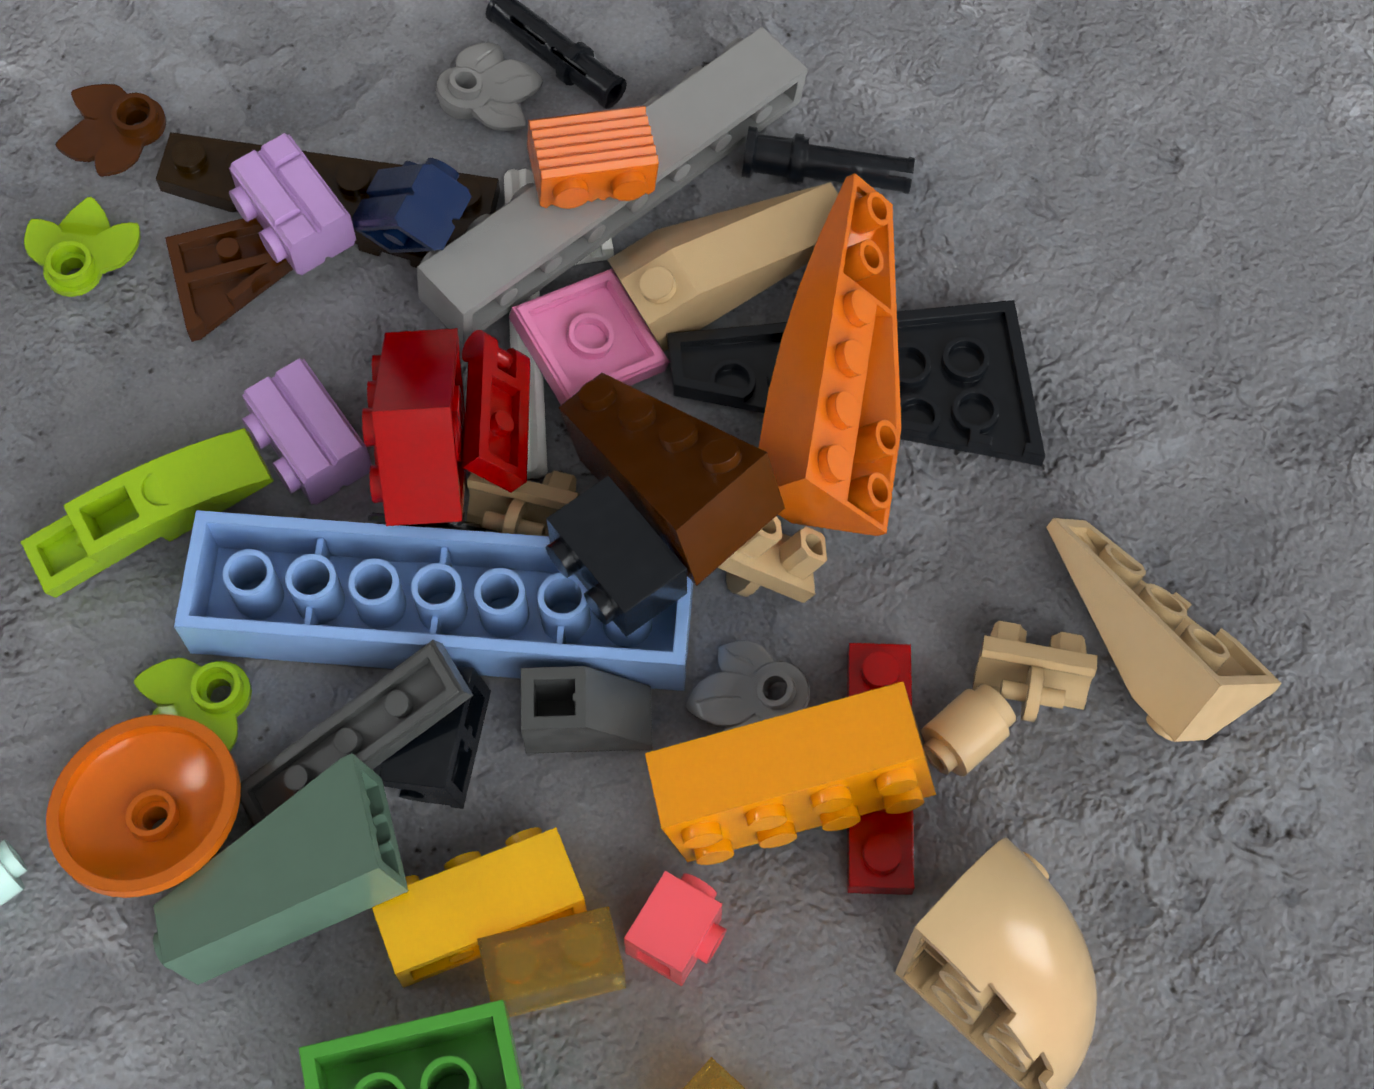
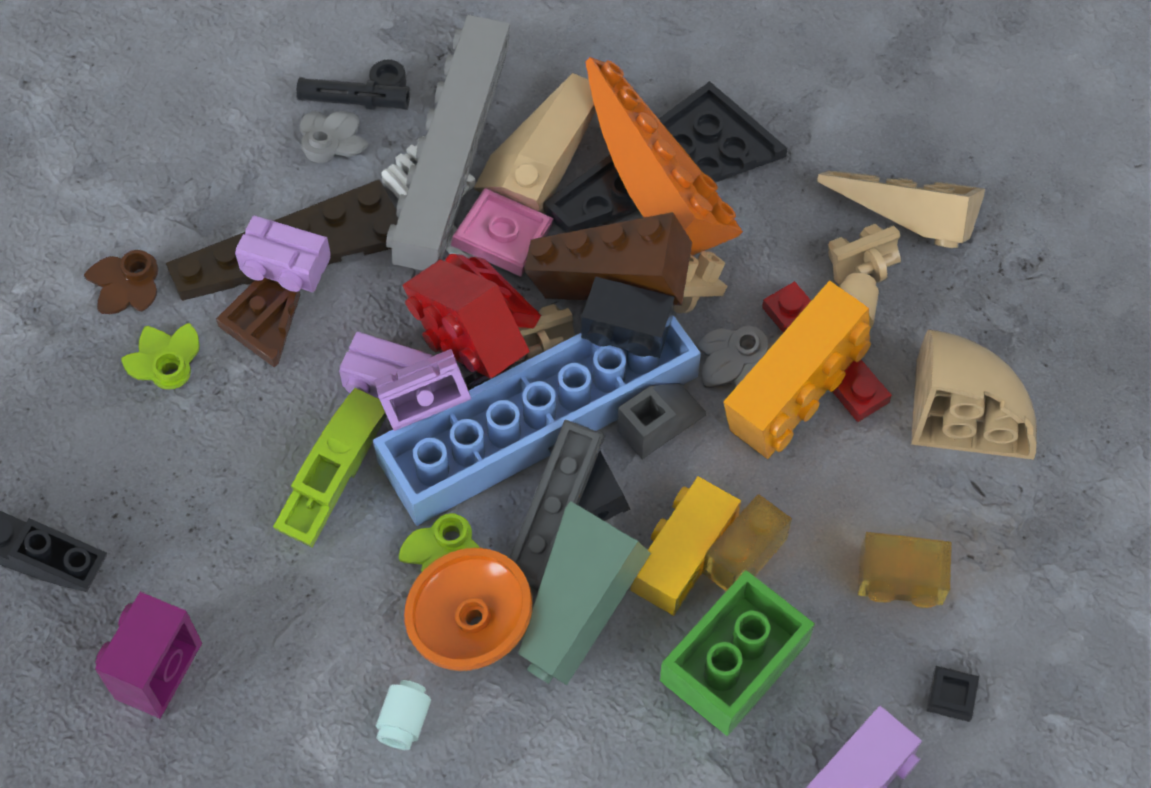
camera: 35 degrees left, 5 degrees down
(296, 485) = (422, 390): none -> lavender brick
(412, 207) = (360, 212): dark blue brick -> none
(592, 157) = (442, 127): orange brick -> none
(619, 50) = (388, 73): none -> black tile
(676, 927) = (794, 487): coral brick -> none
(798, 159) = (538, 75): black pin -> none

